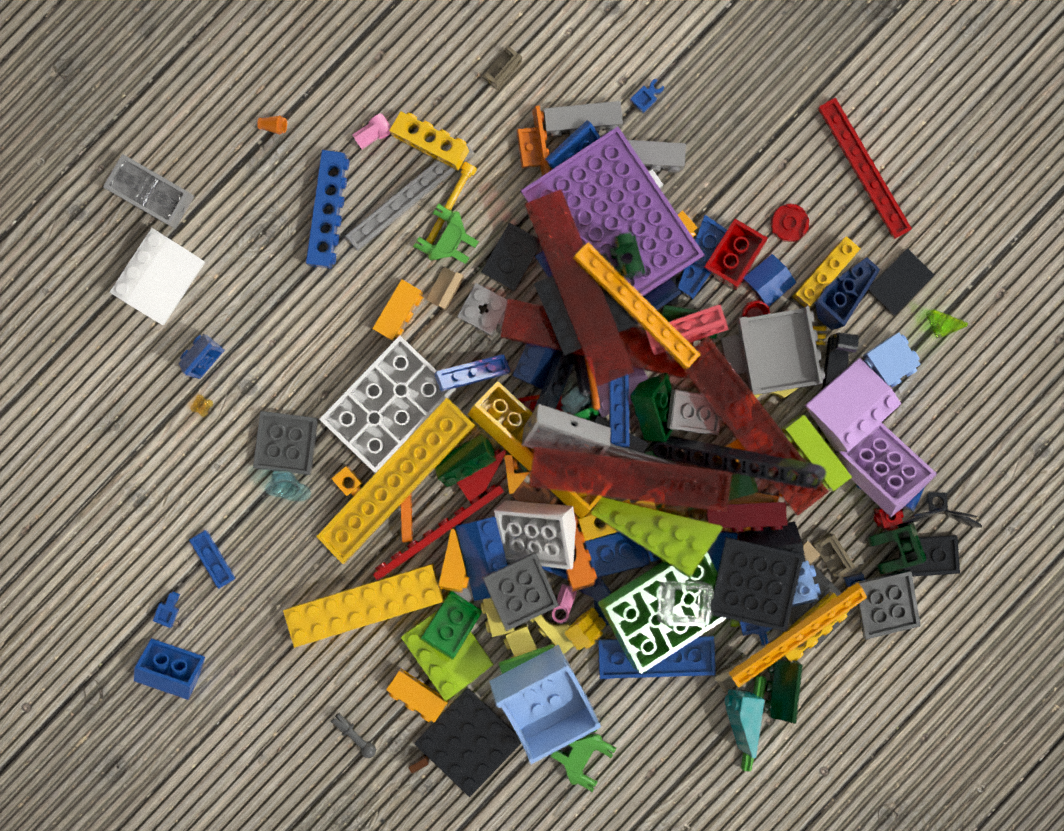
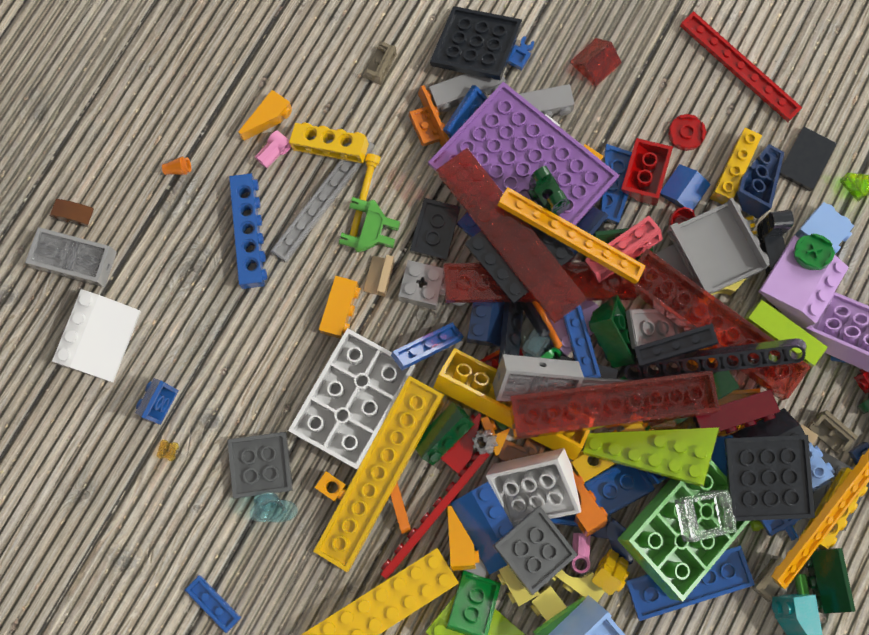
camera: 15 degrees left, 10 degrees down
(159, 144) = (71, 211): none -> reddish brown slope
(376, 93) = (267, 115): none -> light orange slope
(501, 479) = (485, 441): none -> light grey gear
(604, 74) = (476, 43): none -> black plate
(708, 437) = (676, 345): none -> black plate
(722, 123) = (597, 61): none -> clear red slope
(871, 380) = (813, 252): none -> green tile

